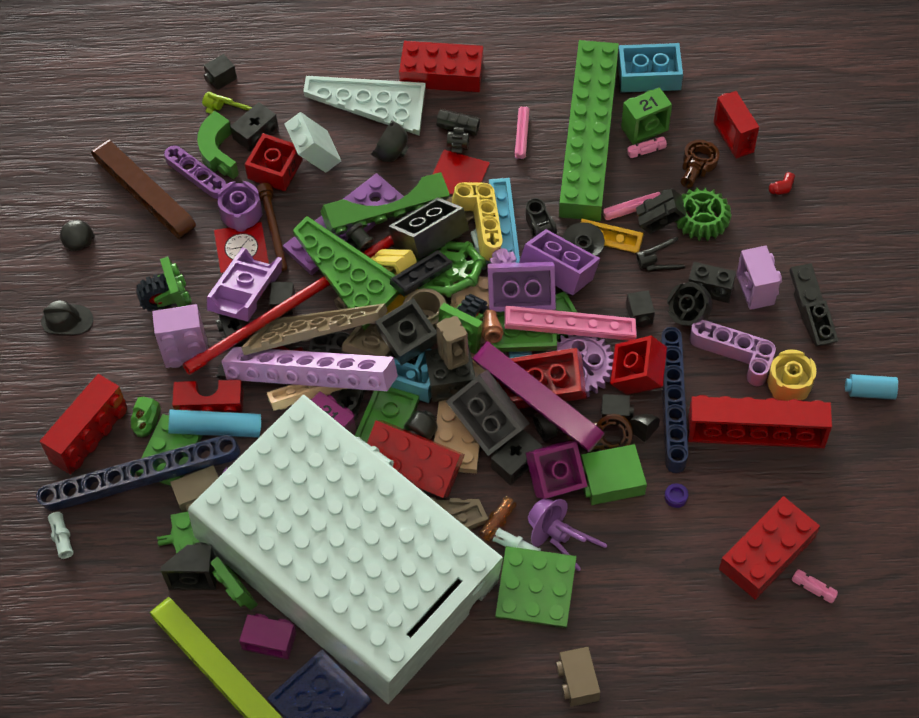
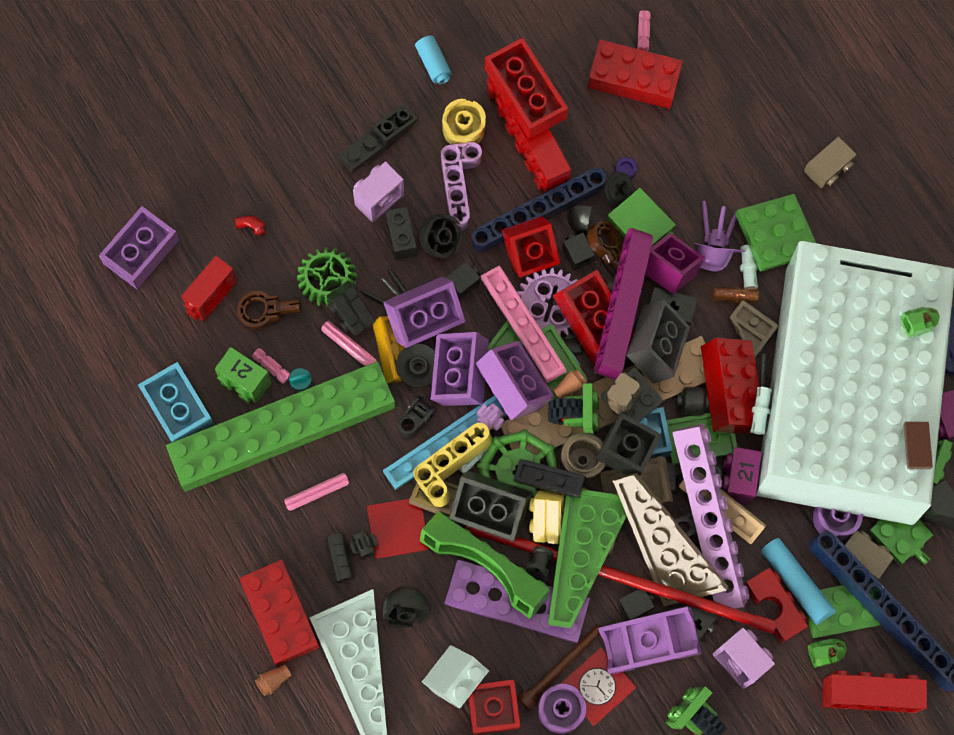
camera: 125 degrees left, 15 degrees up
(244, 523) = (918, 445): none -> reddish brown tile
(356, 601) = (919, 321): none -> bright green rock
(395, 44) = (272, 679): none -> nougat cone
(622, 161) = (300, 379): none -> teal tile
(625, 256) = (424, 311): none -> medium lavender brick
(648, 466) = (625, 187): none -> pearl dark grey gear
(791, 411) = (526, 88): none -> red brick
(801, 96) = (139, 247): none -> medium lavender brick

